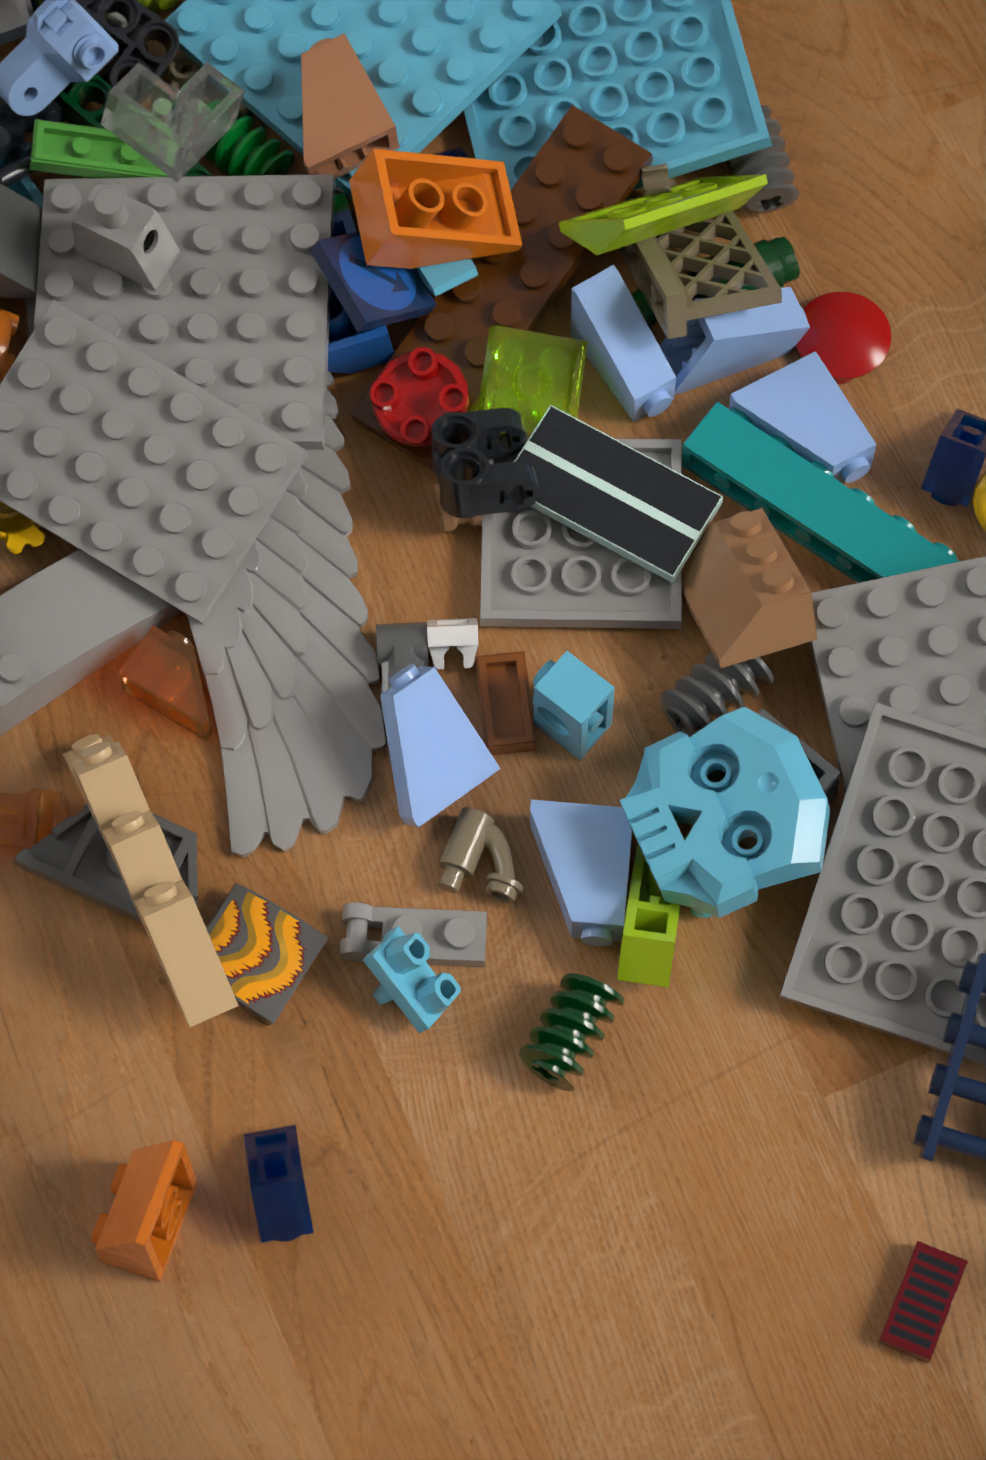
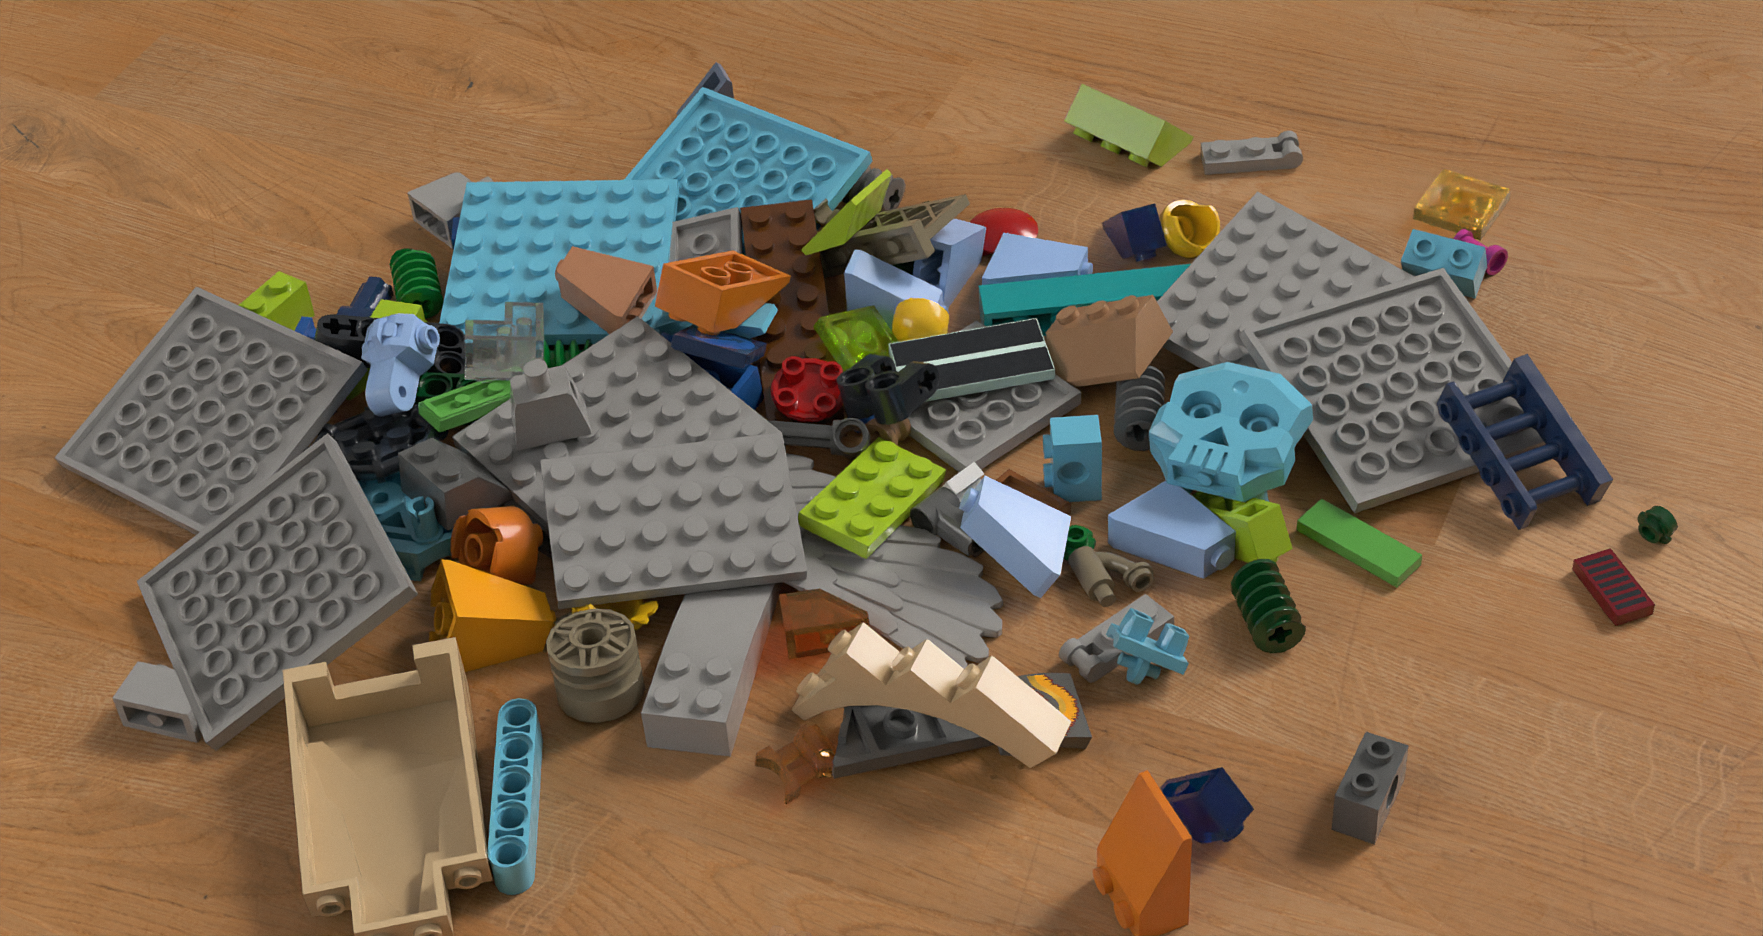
camera: 40 degrees left, 25 degrees down
(355, 578) = (871, 497): none -> lime plate
(378, 464) = (825, 436): none -> dark grey axle
(438, 1304) = (1369, 787): none -> dark grey brick
(501, 803) = (1078, 537): none -> green plate
(505, 120) = (706, 235): none -> light grey plate
(611, 404) = (919, 319): none -> yellow hair
(749, 1032) = (1359, 542): none -> bright green tile

